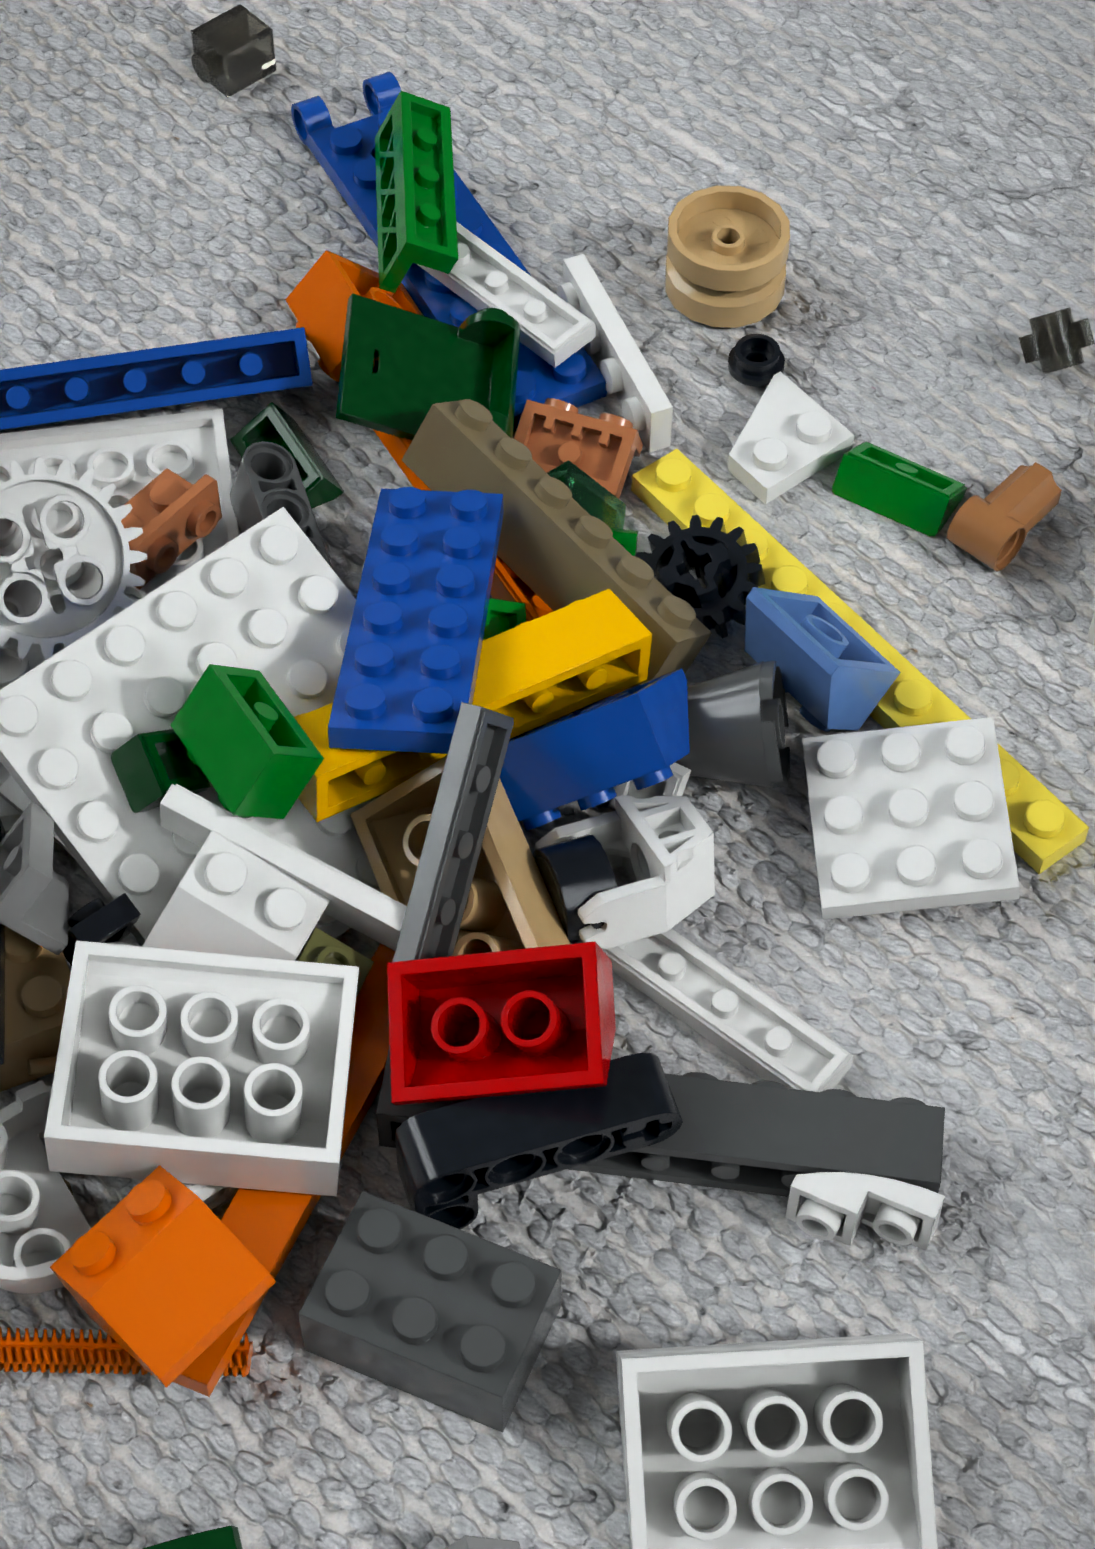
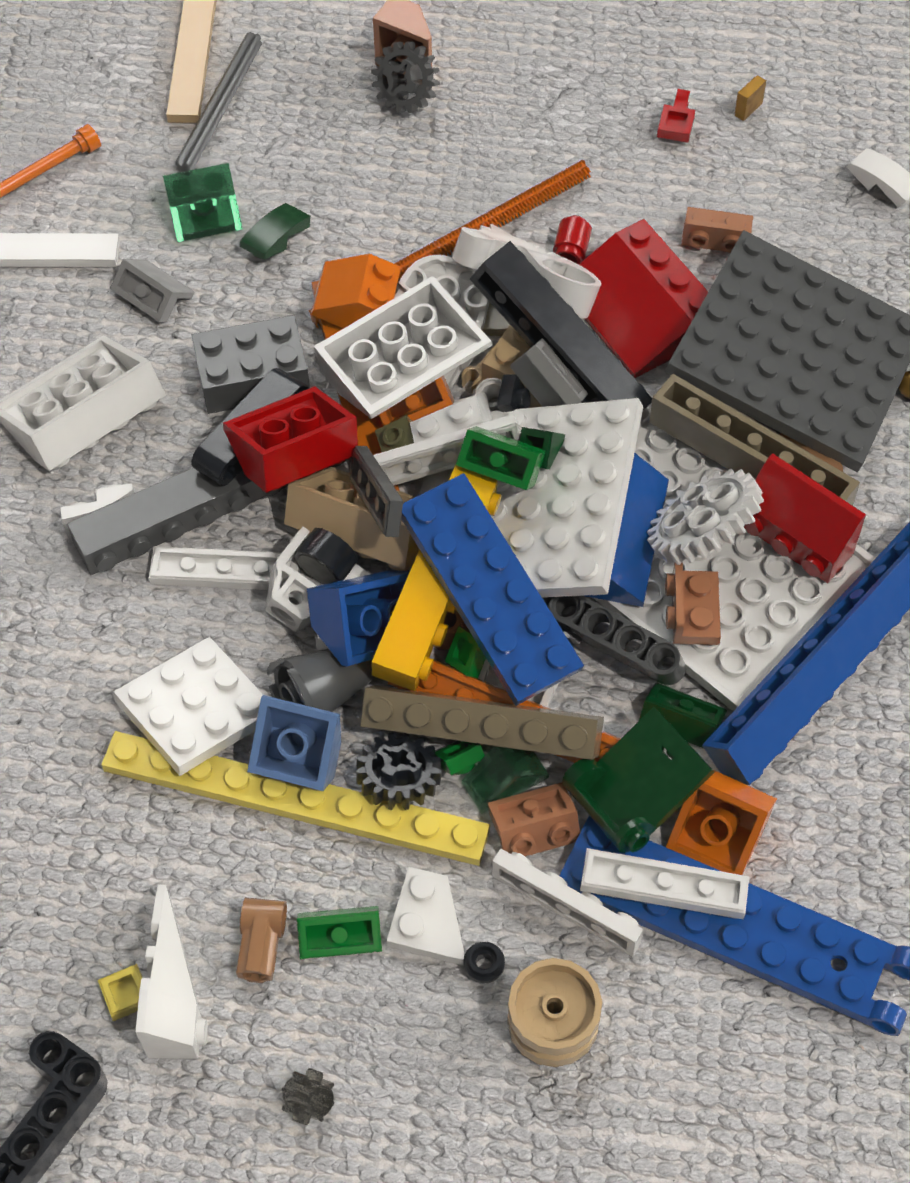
camera: 145 degrees right, 5 degrees up
(415, 190) = (768, 909): green fence -> none

